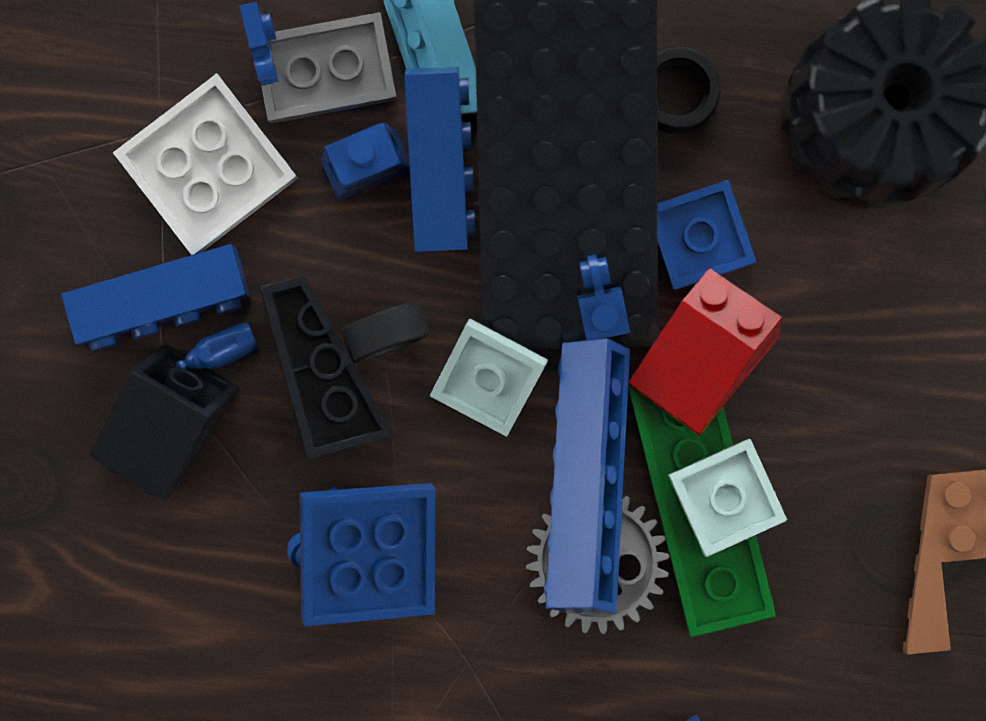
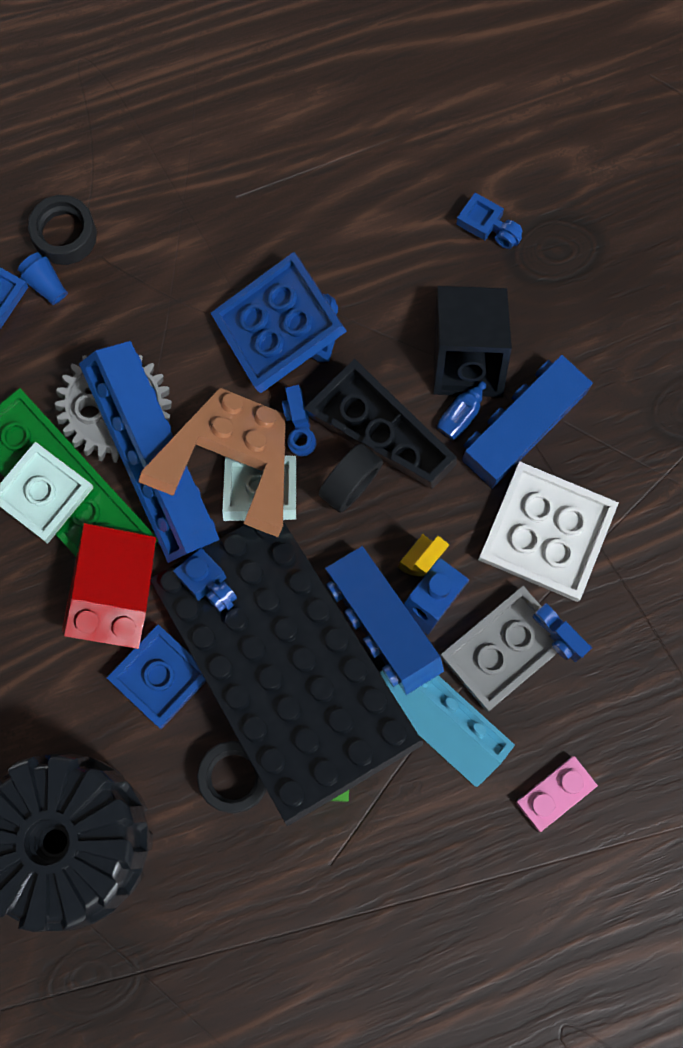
camera: 150 degrees right, 10 degrees down
(65, 561) = (483, 216): none -> blue plate
(356, 203) = (422, 555): none -> yellow slope
(401, 446) = (294, 411): none -> blue plate
(475, 449) = (237, 431): none -> nougat wing

